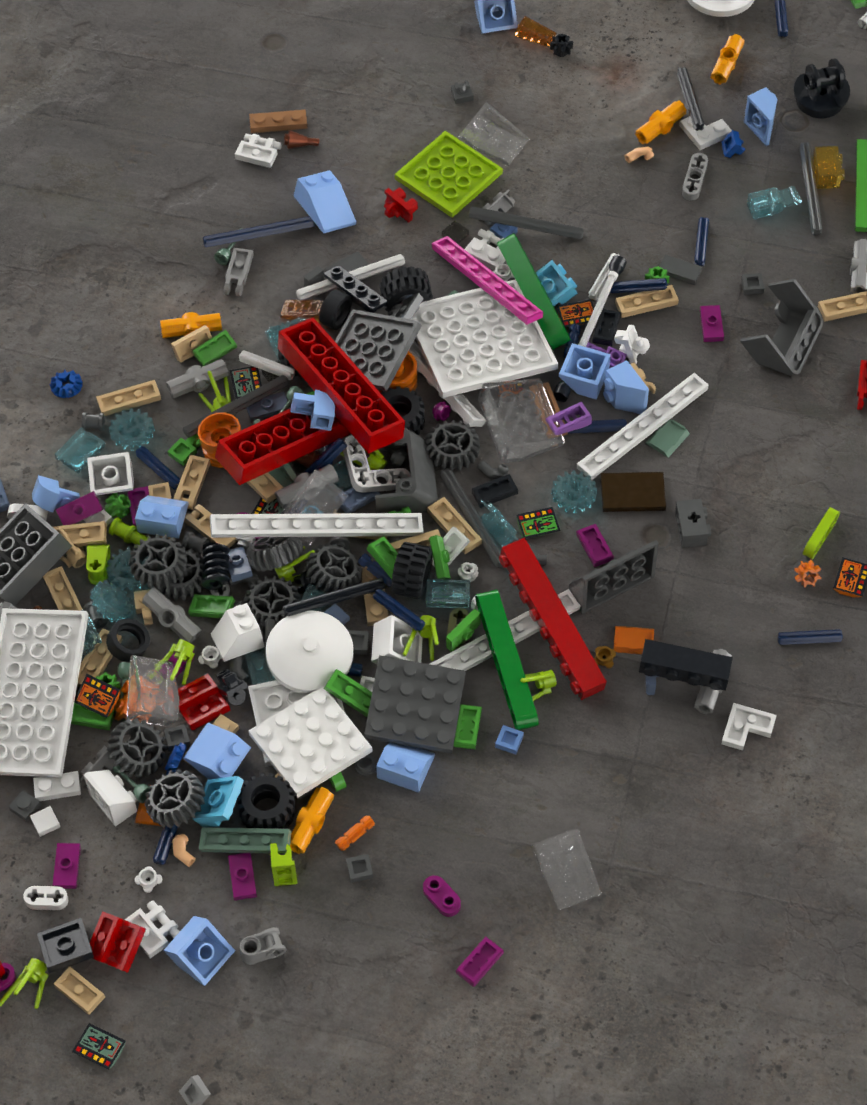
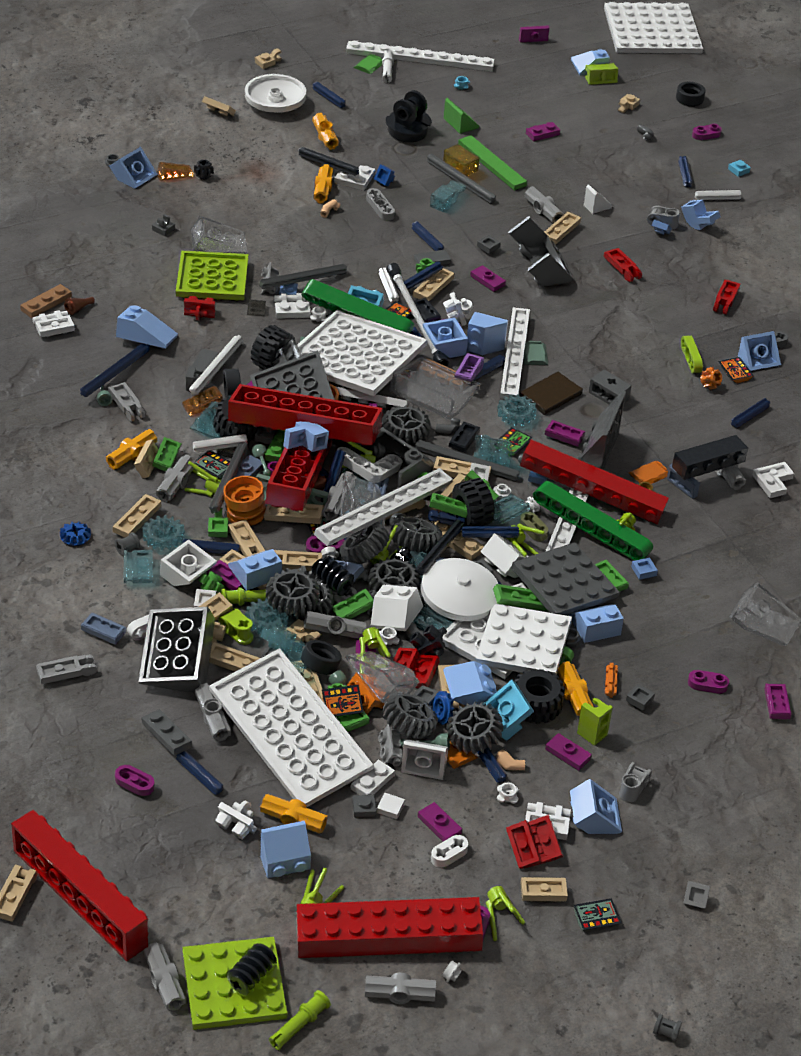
camera: 45 degrees left, 15 degrees down
(49, 495) = (148, 600): light blue brick -> none
(65, 945) = (502, 867): plate -> none
(79, 509) = (190, 594): magenta plate -> none
(243, 840) = (547, 726): sand green plate -> none
(359, 292) = (246, 365): black bracket -> none
(463, 630) = (547, 519): bright green plate -> none
(487, 280) = (319, 317): dark pink tile -> none
(761, 113) = (389, 148): light blue slope -> none

